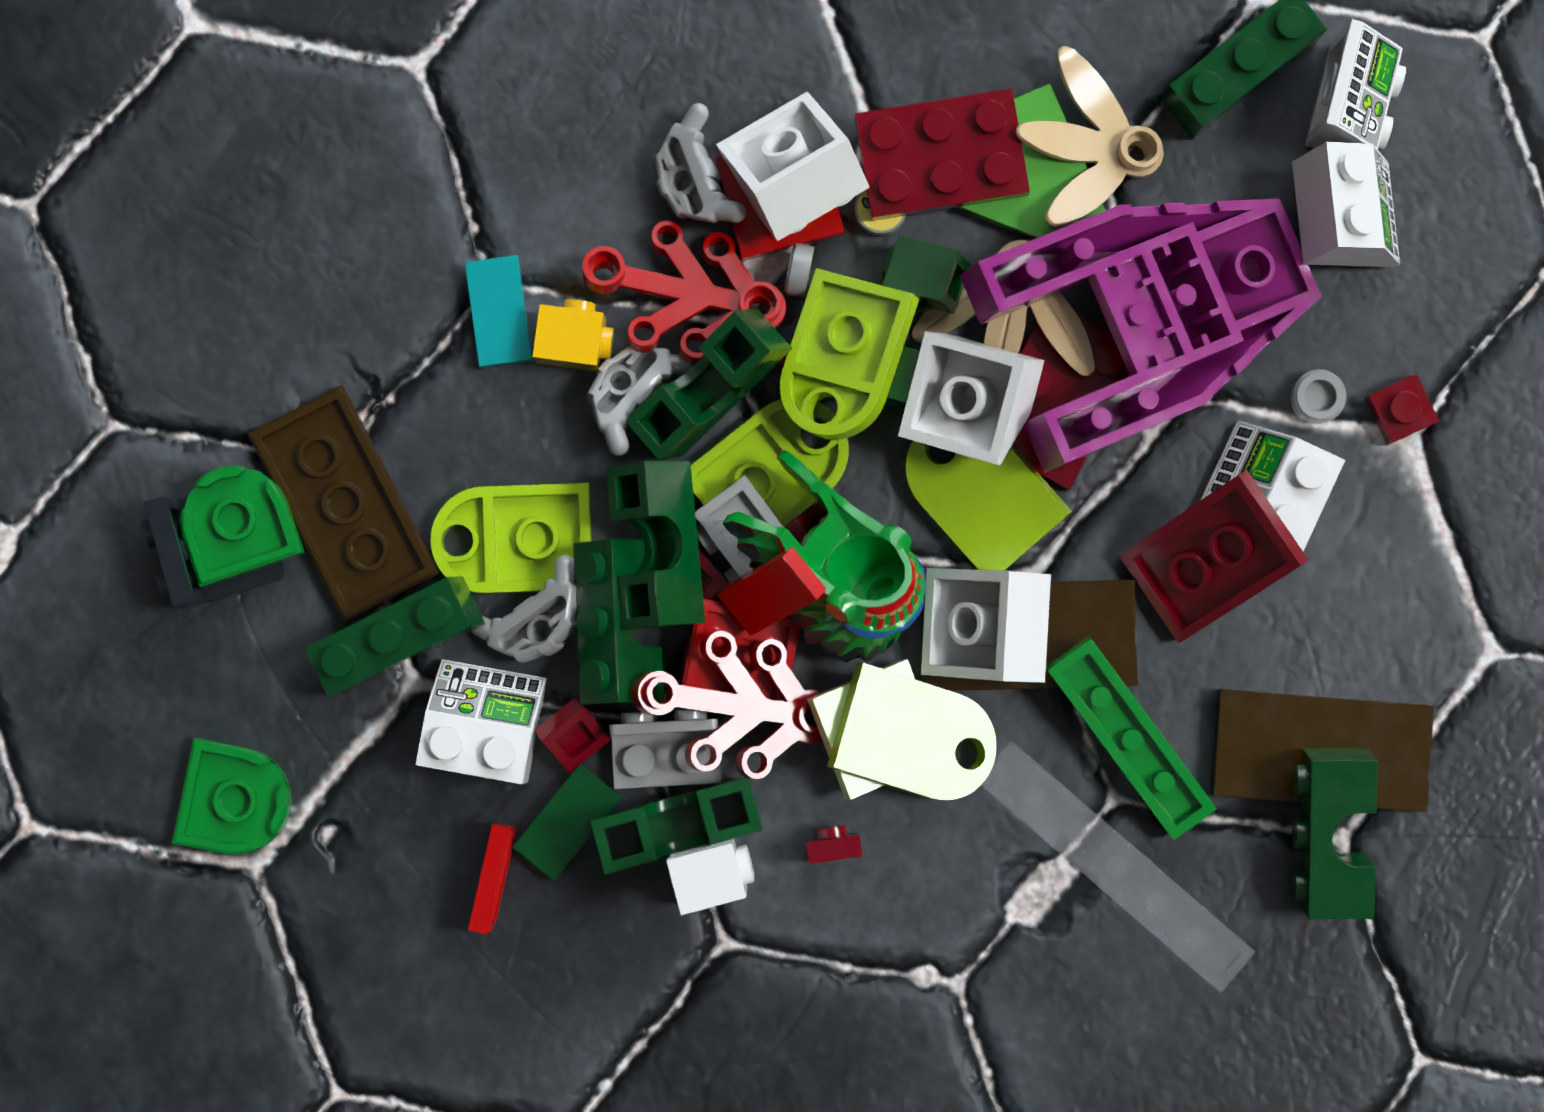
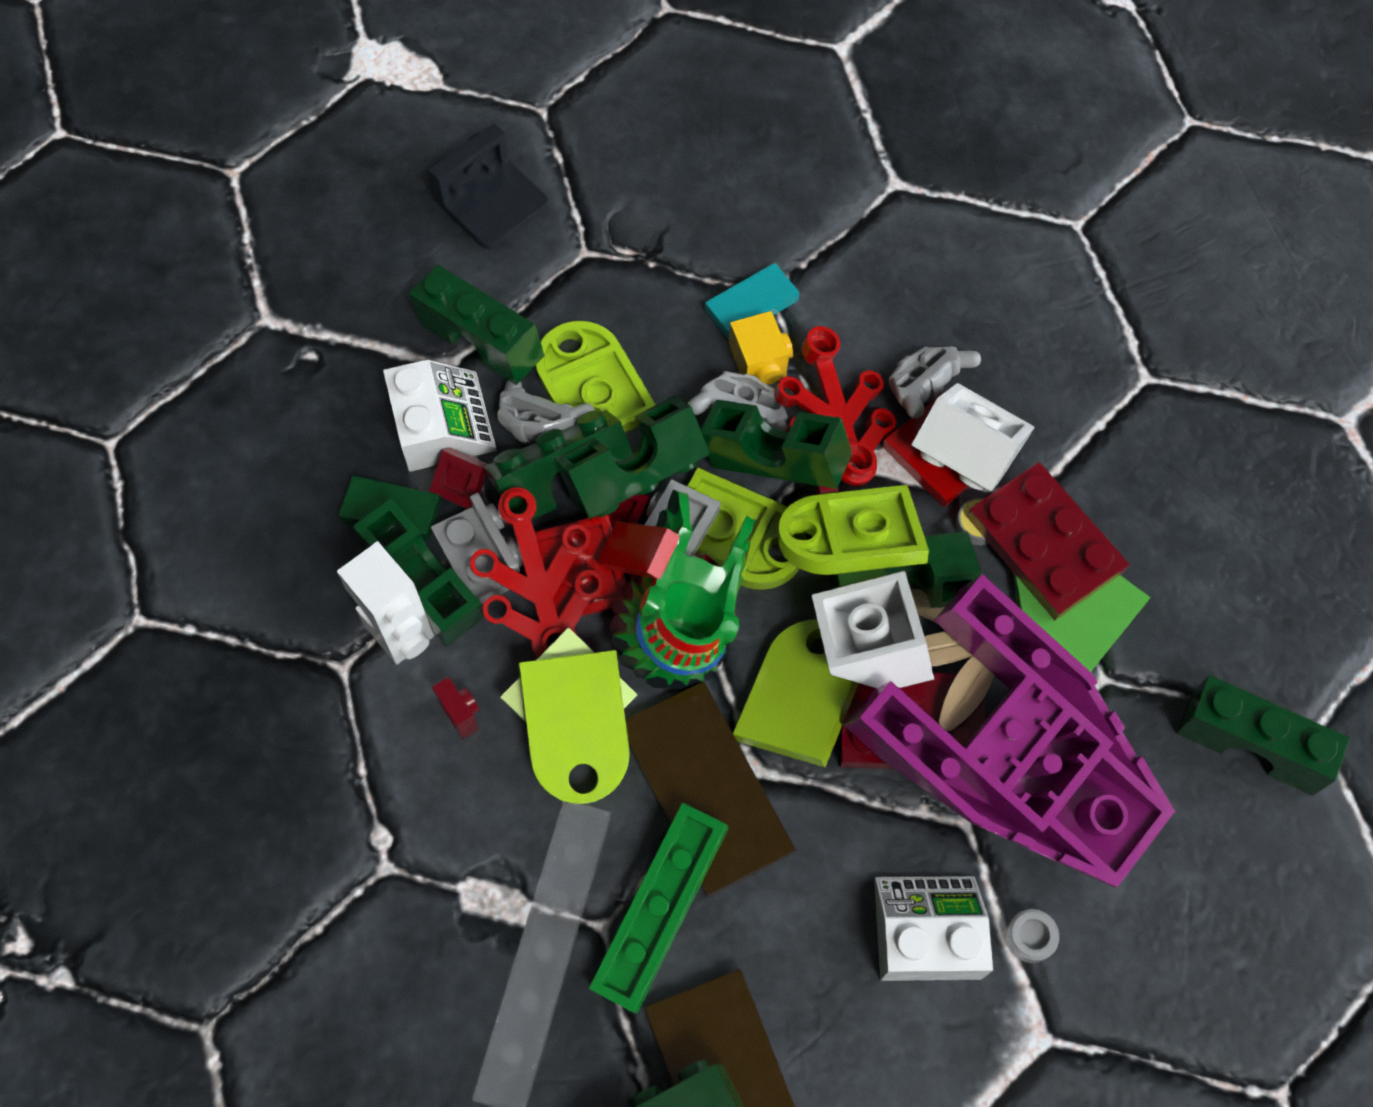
camera: 65 degrees right, 20 degrees down
(231, 799) = (307, 283): green tile -> none
(237, 524) = (508, 199): green tile -> none
(344, 503) = (564, 259): dark brown tile -> none
(492, 878) = (320, 469): red tile -> none
(799, 270) = (900, 475): light grey tile -> none
(986, 624) = (697, 739): white slope -> none
(1084, 145) = (1126, 663): tan plant -> none
(1213, 557) = (850, 897): dark red plate -> none
(1345, 206) = (1205, 873): white slope -> none
(1357, 88) = (1300, 835): white slope -> none
(1401, 409) = (1063, 1015): dark red plate -> none

